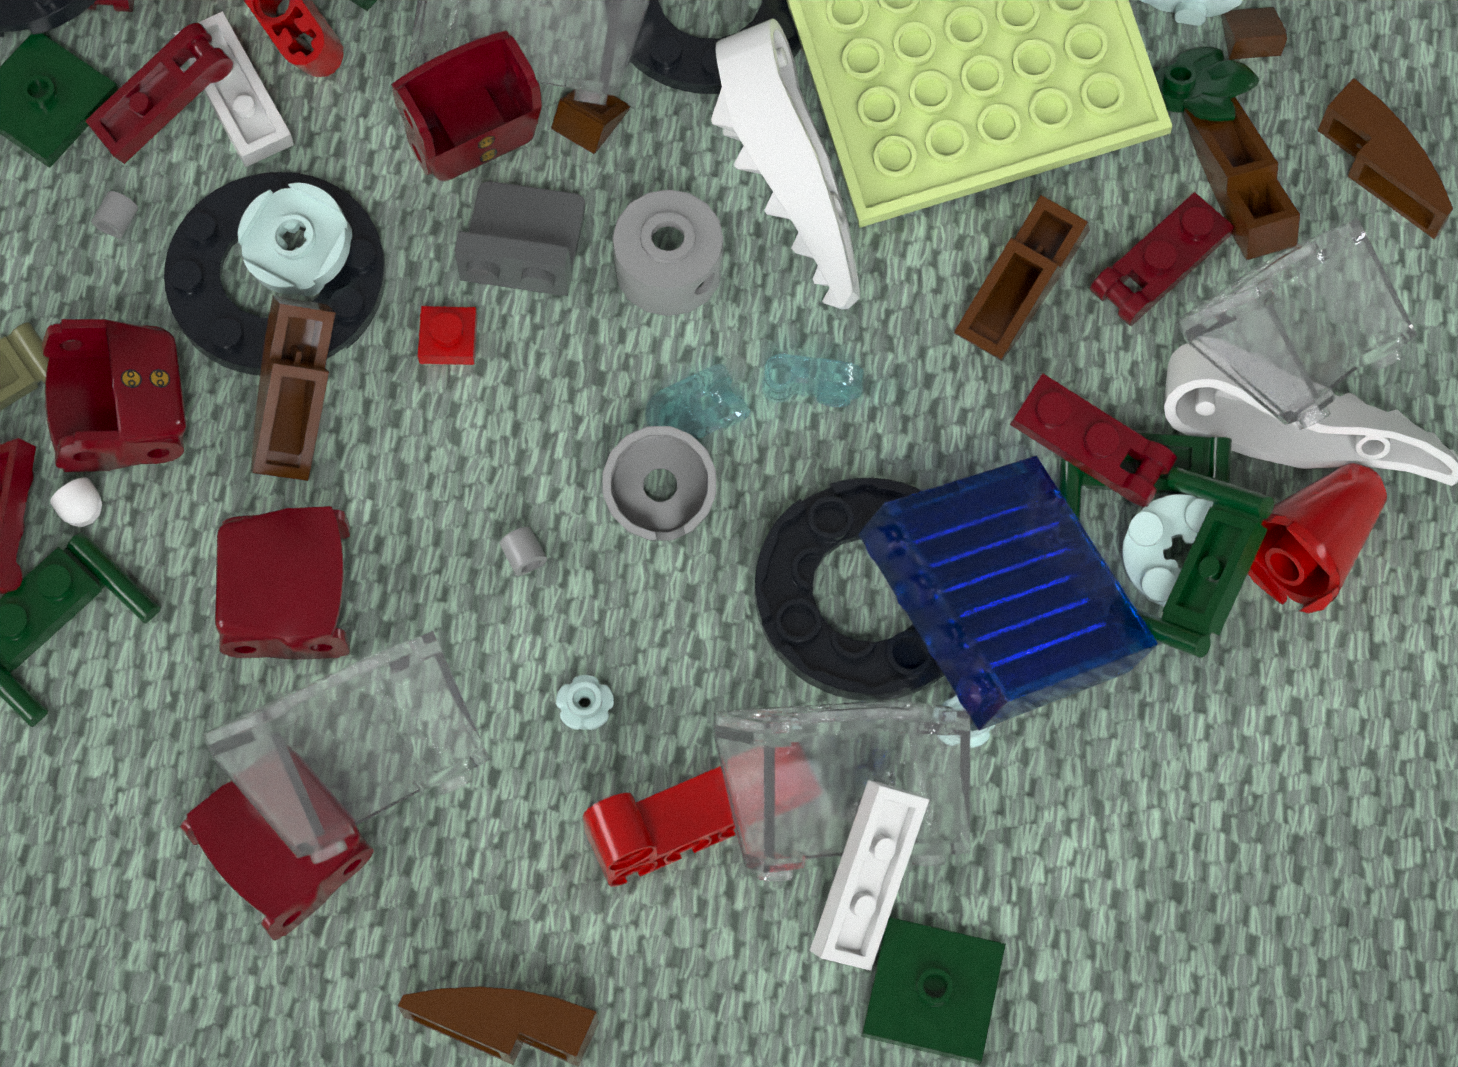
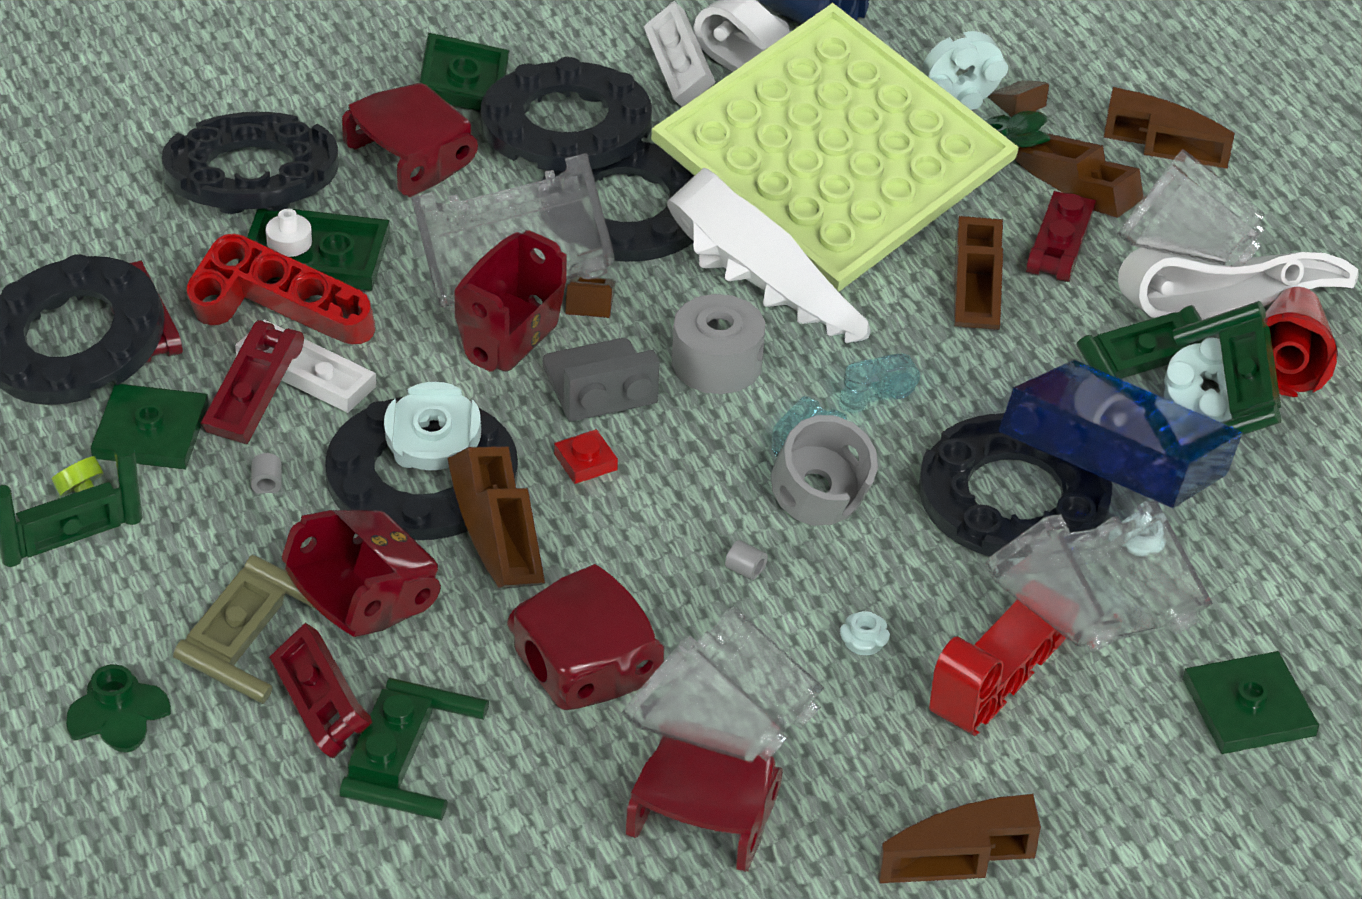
camera: 30 degrees left, 25 degrees down
(77, 502) = (374, 658): white hinge -> none
(869, 875) = (1159, 636): white plate -> none
(1092, 440) = (1107, 335): dark red plate -> none

